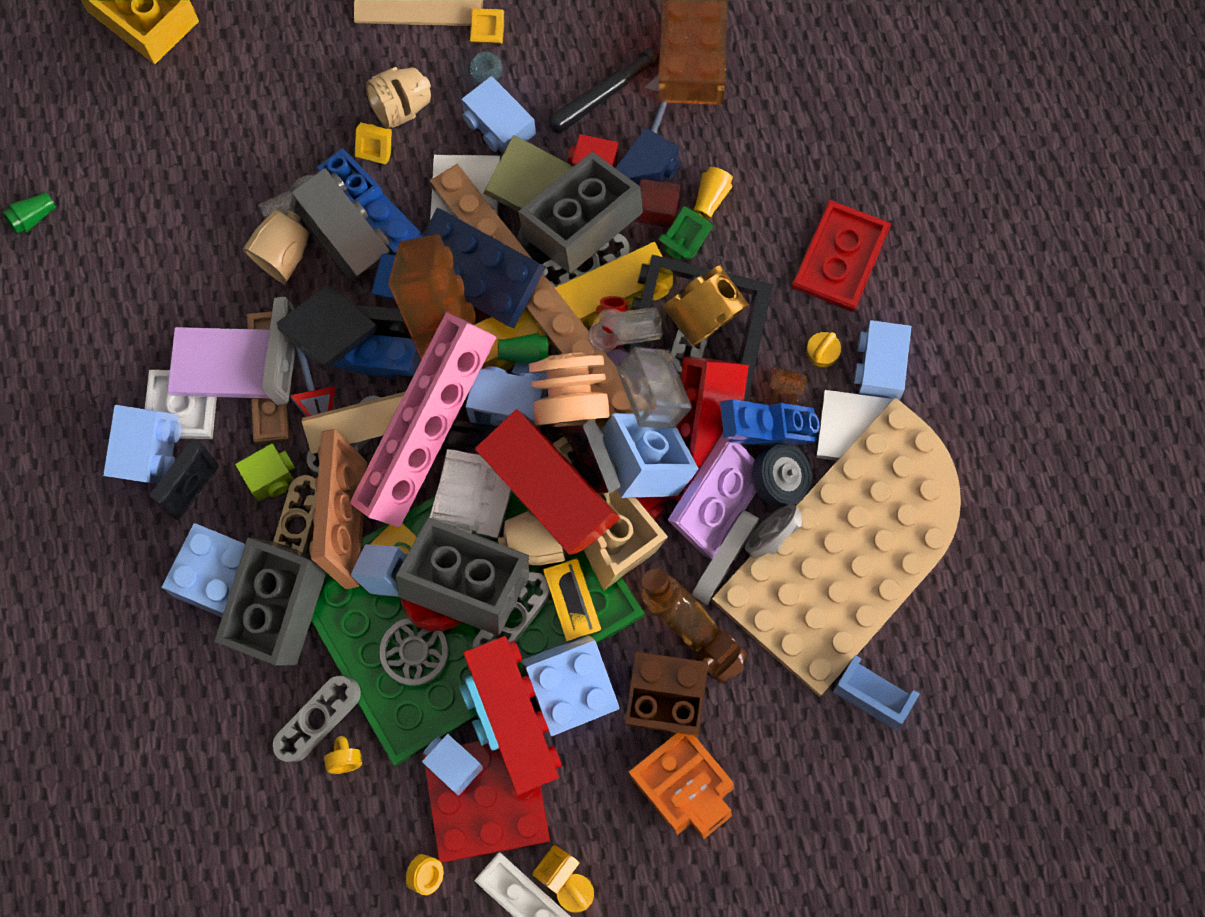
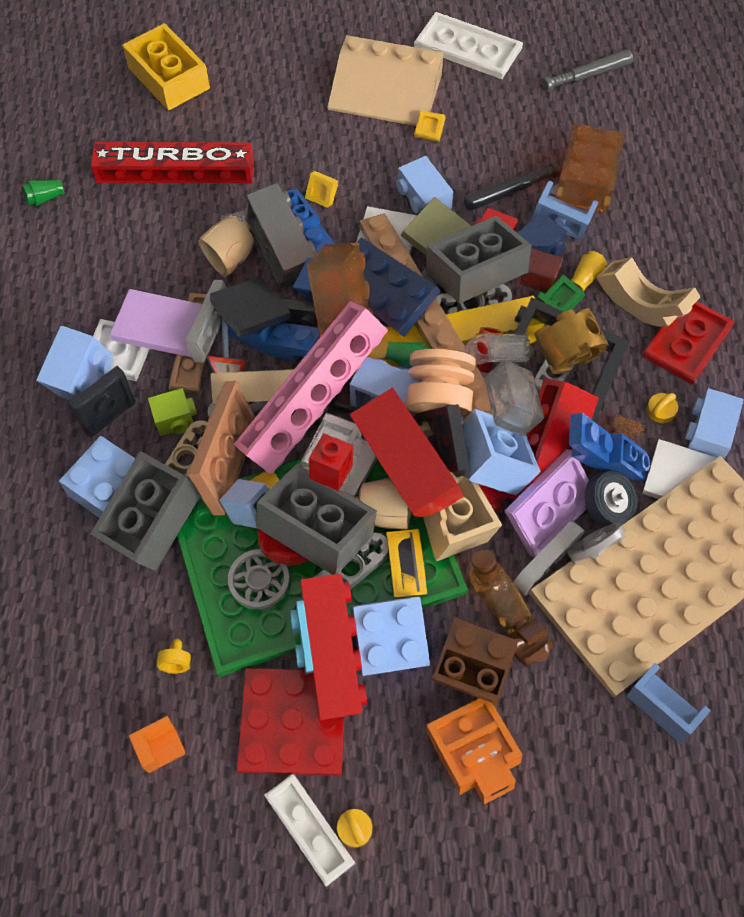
camera: 10 degrees right, 10 degrees down
(181, 141) = (173, 162): none -> red brick
(305, 744) = (174, 621): light grey beam -> none
(349, 854) = (157, 744): none -> orange panel
(397, 88) = (349, 155): tan helmet -> none
(424, 874) = (220, 779): yellow tile -> none
(451, 763) = (268, 681): light blue brick -> none
(466, 512) = (330, 462): none -> red brick
(485, 65) = (422, 149): clear light blue plate -> none
(555, 868) = (341, 800): yellow tile -> none
(672, 120) = (566, 215): none -> medium blue panel
(780, 215) = (641, 298): none -> tan arch

